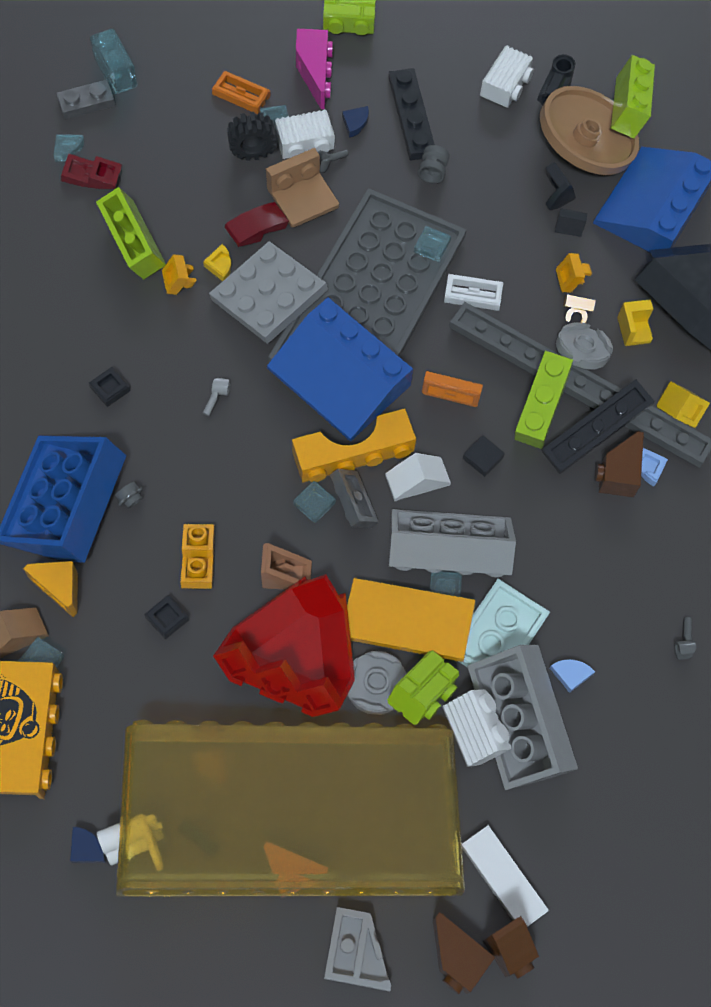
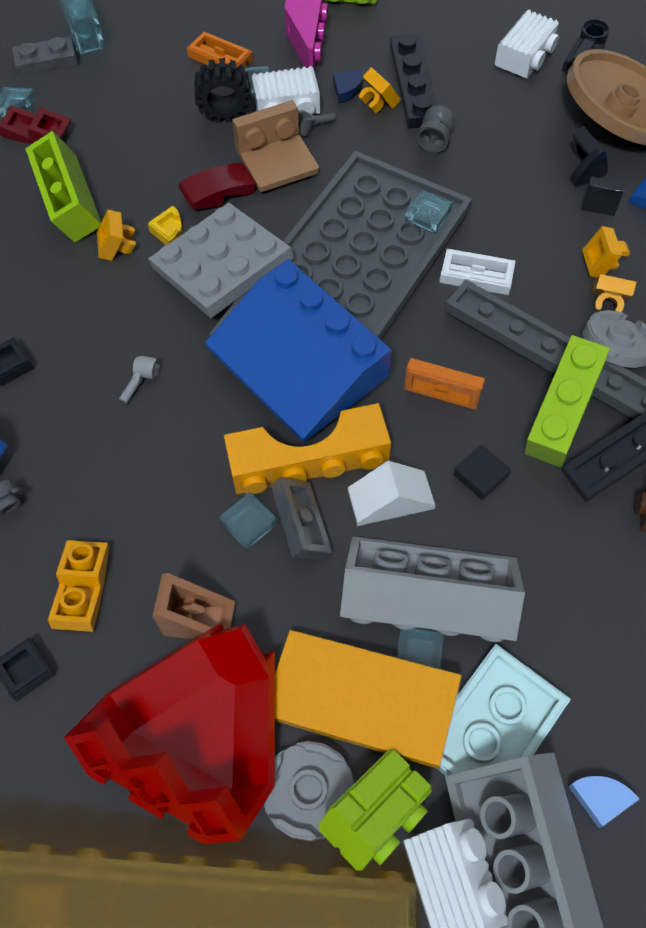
camera: 10 degrees right, 5 degrees down
(383, 127) = (379, 90): none -> light orange tile

